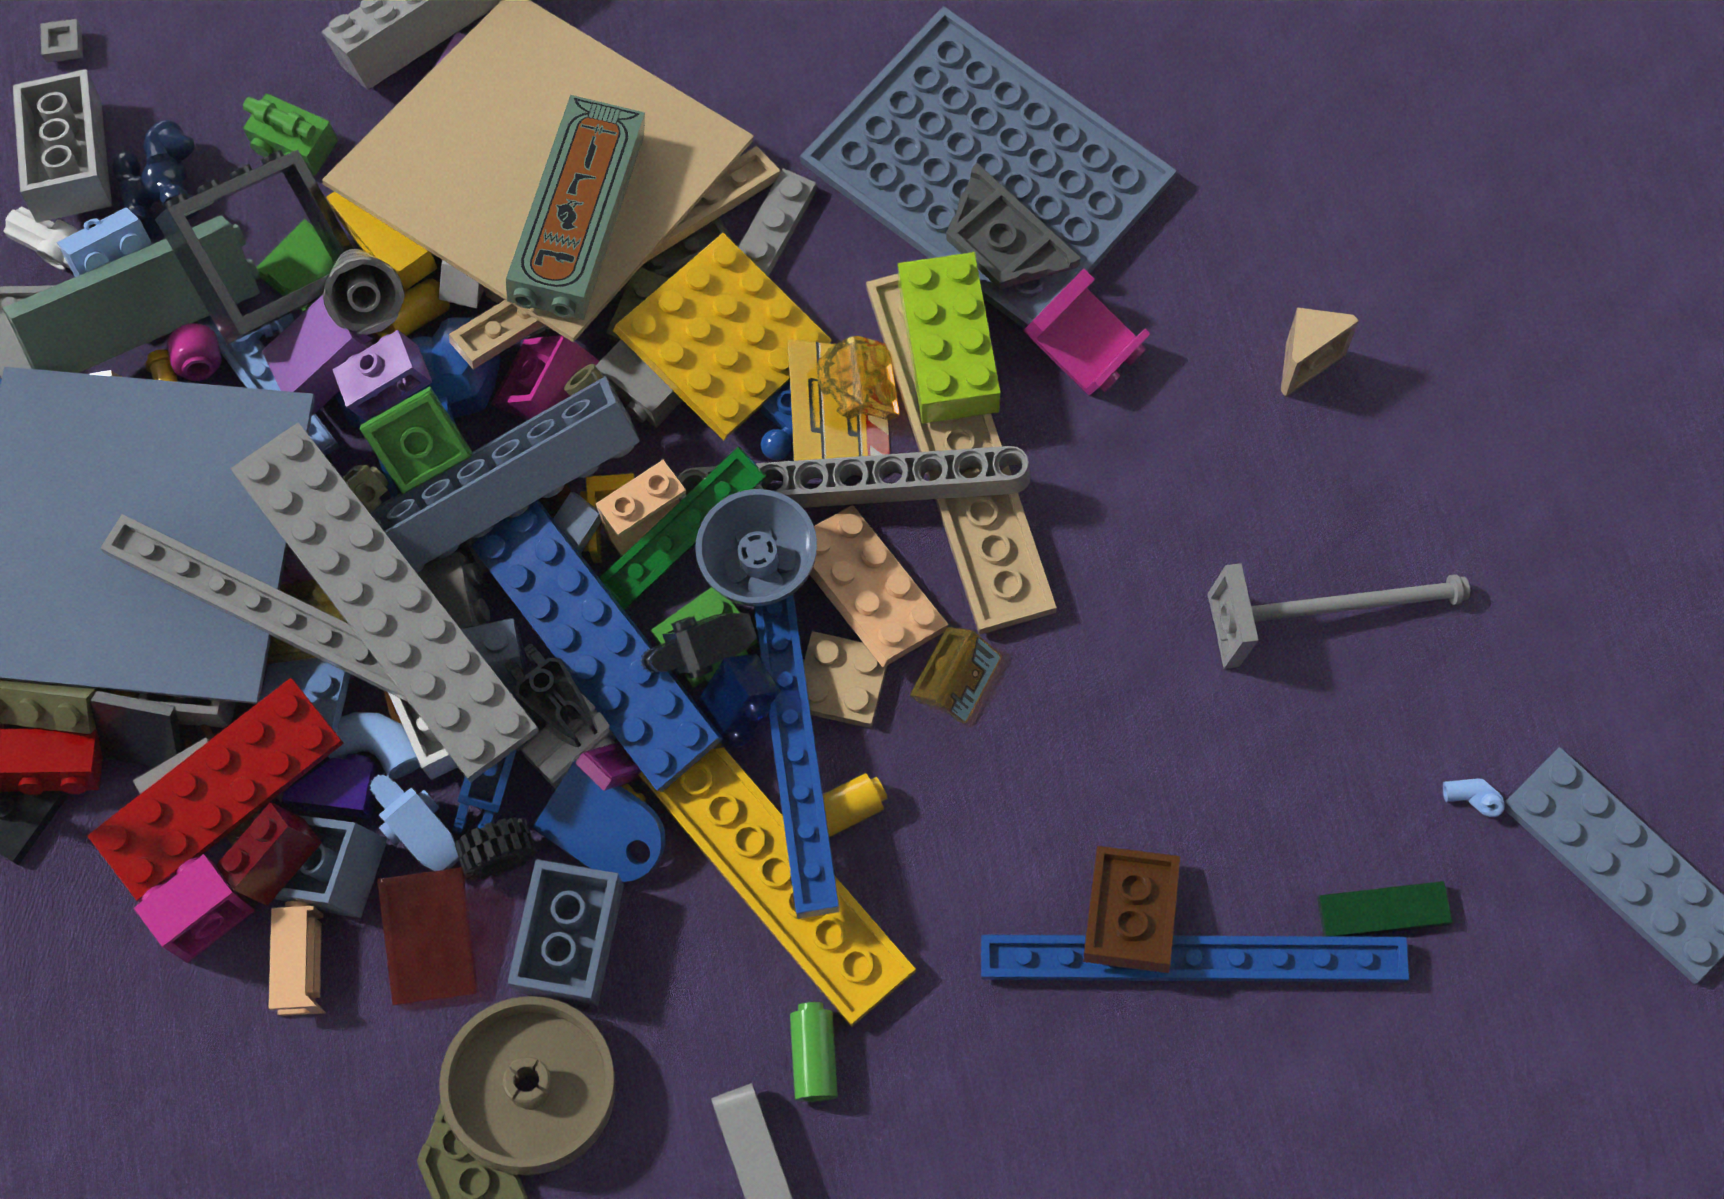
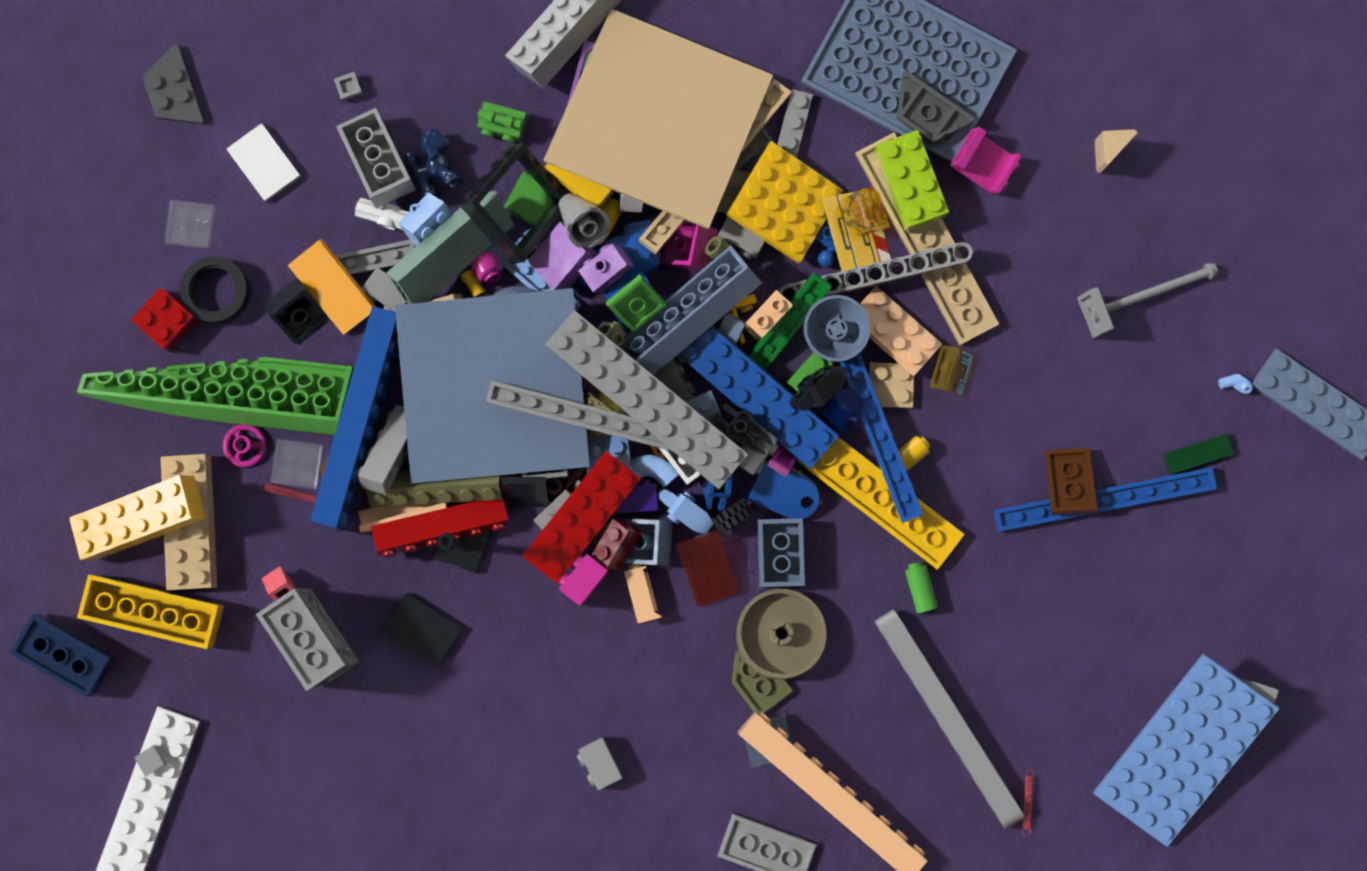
camera: 10 degrees left, 15 degrees up
(575, 208) = (691, 148): brick -> none

